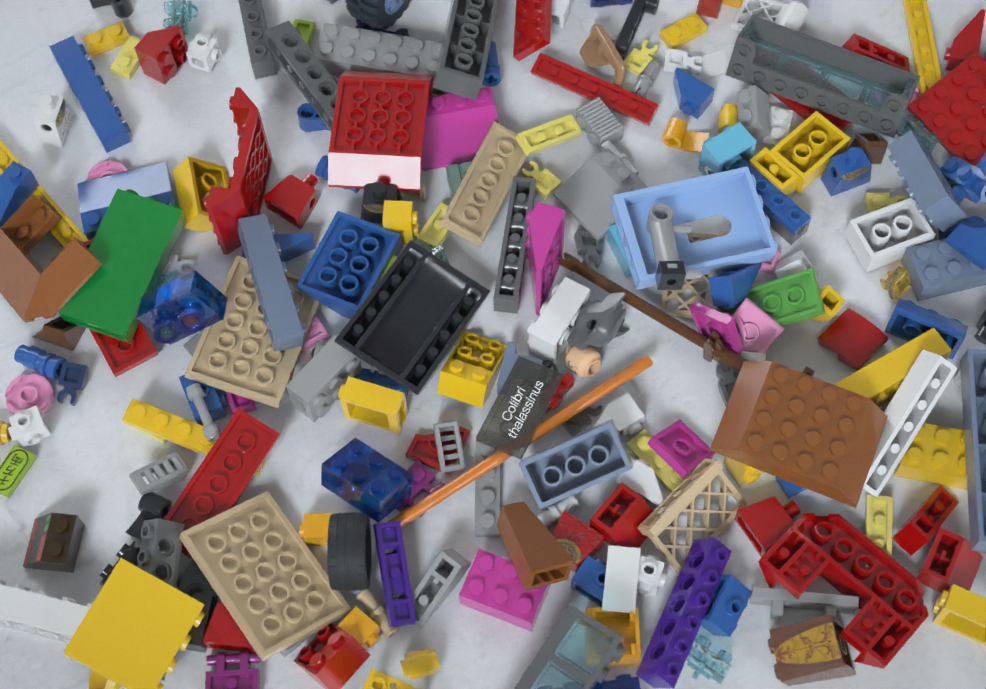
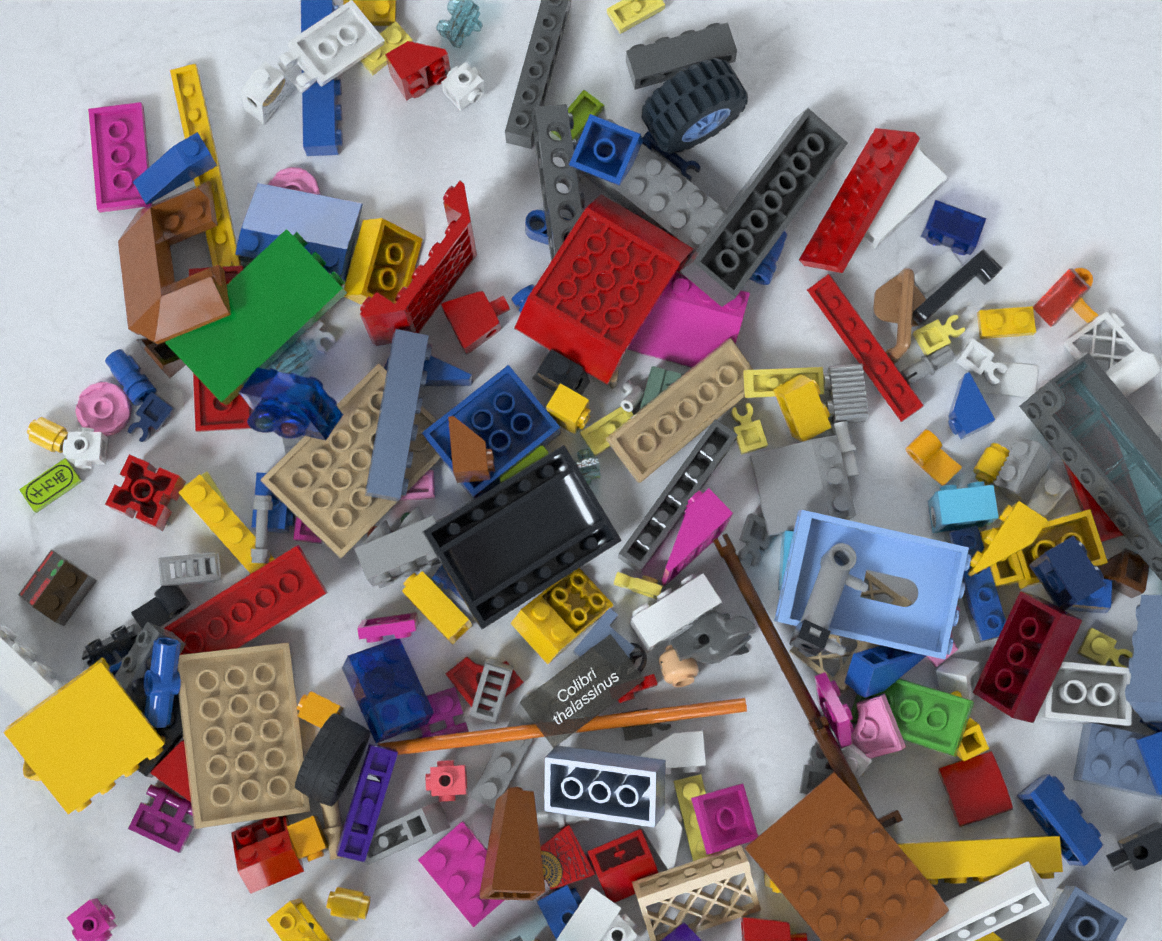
camera: 25 degrees right, 15 degrees up
(89, 66) = (331, 46): none -> white tile
(94, 435) = (141, 477): none -> red brick
(179, 556) = (162, 681): none -> blue piece
(334, 32) = (606, 150): none -> blue slope
(341, 274) = (469, 454): none -> dark orange slope
(347, 432) = (399, 625): none -> dark pink plate
(441, 196) = (633, 395): none -> white arm
(450, 528) = (457, 785): none -> coral brick
(520, 321) = (646, 586): none -> light yellow plate
(572, 143) = (802, 407): none -> yellow brick
(774, 148) = (1017, 531): none -> yellow slope
(827, 150) = (1067, 573): none -> dark blue slope
(833, 222) = (1027, 657): none -> dark red brick
(896, 283) = (1060, 752): clear yellow tile -> none

